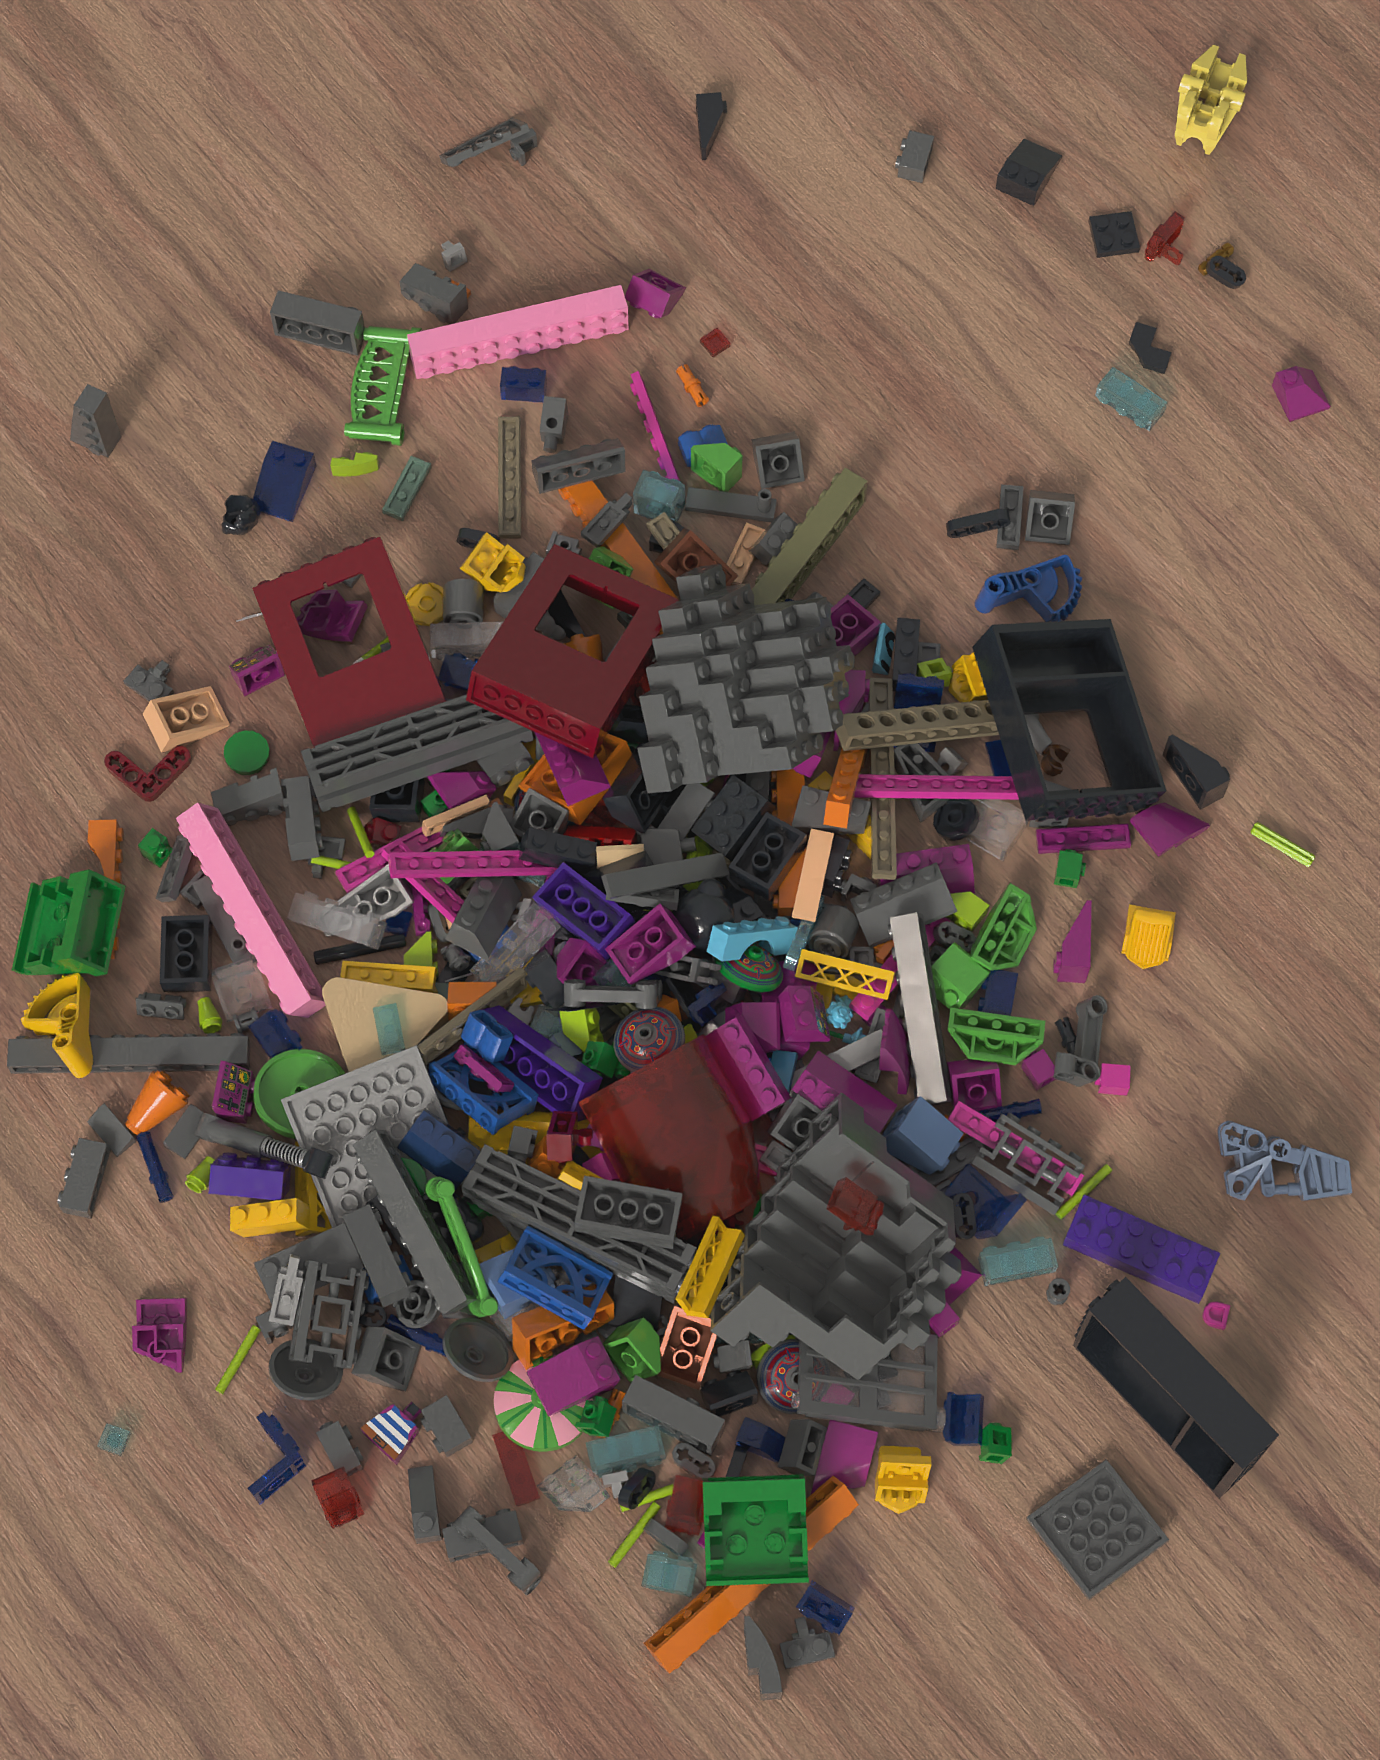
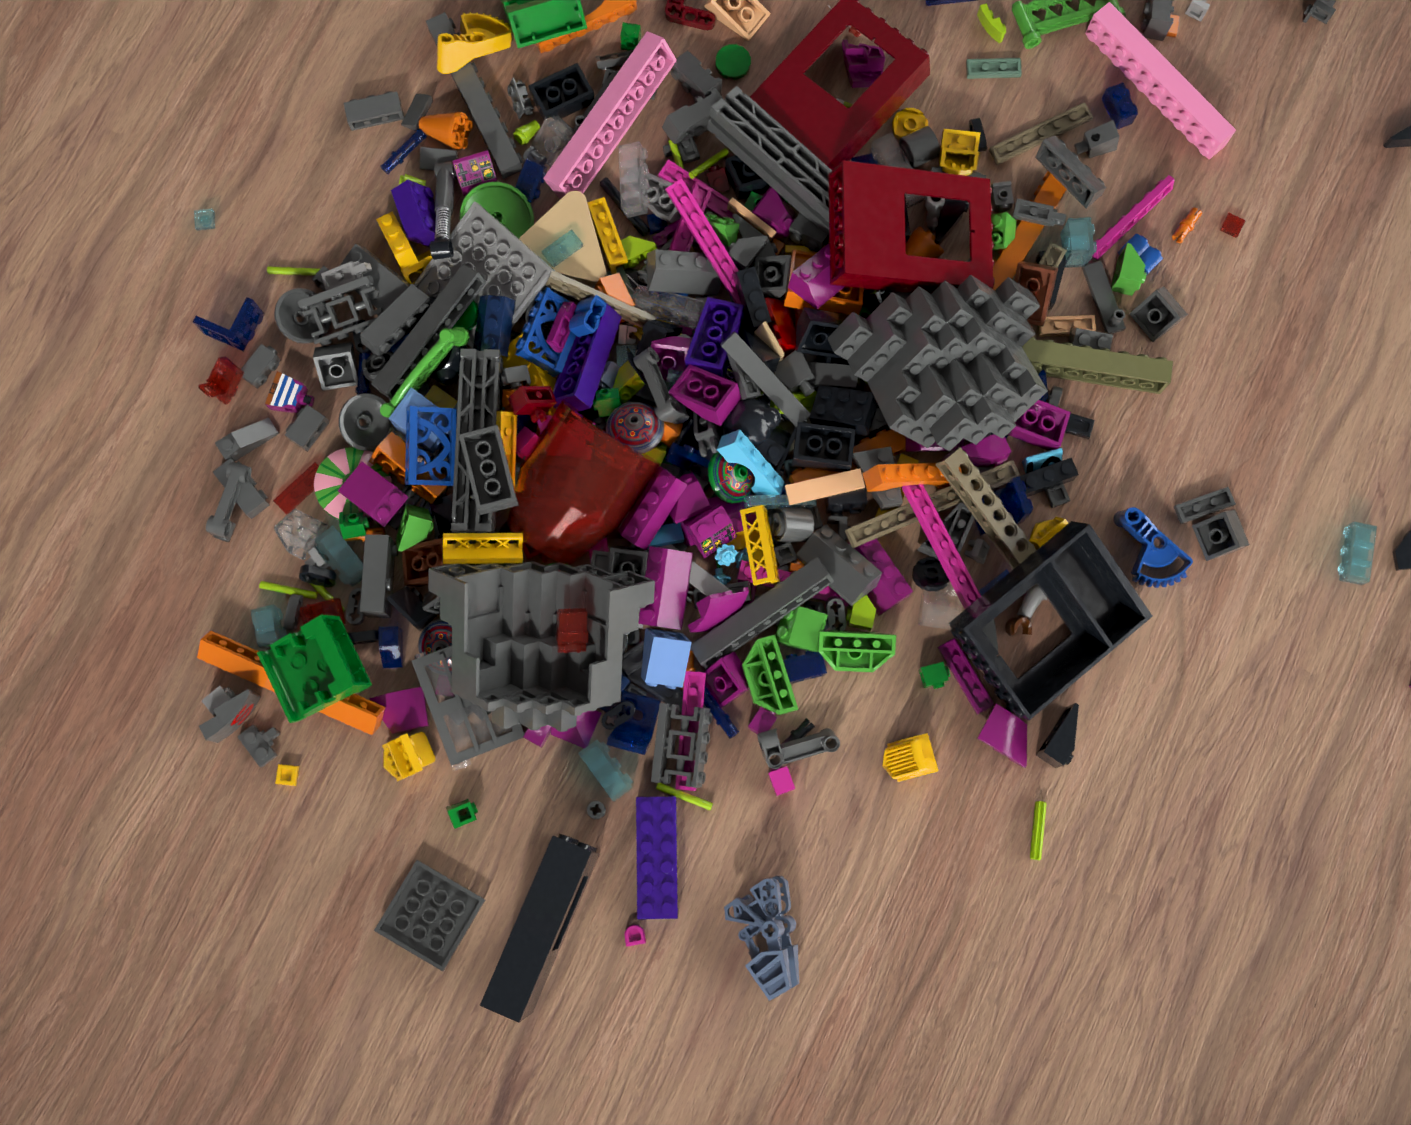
camera: 65 degrees right, 10 degrees up
(161, 1331) = (292, 212): magenta slope -> none
(257, 669) = (791, 31): magenta slope -> none
(653, 293) = (1248, 161): magenta slope -> none
(733, 1669) = (217, 698): none -> light grey brick
(802, 1447) = (395, 677): dark grey brick -> none
(825, 1608) = (288, 744): clear blue brick -> none
(858, 1629) = (287, 775): none -> yellow tile
(935, 668) = (1042, 506): lime brick -> none
(963, 1419) = (469, 782): clear blue bracket -> none
(978, 523) = (1184, 483): black beam -> none
(1074, 957) = (866, 707): magenta slope -> none

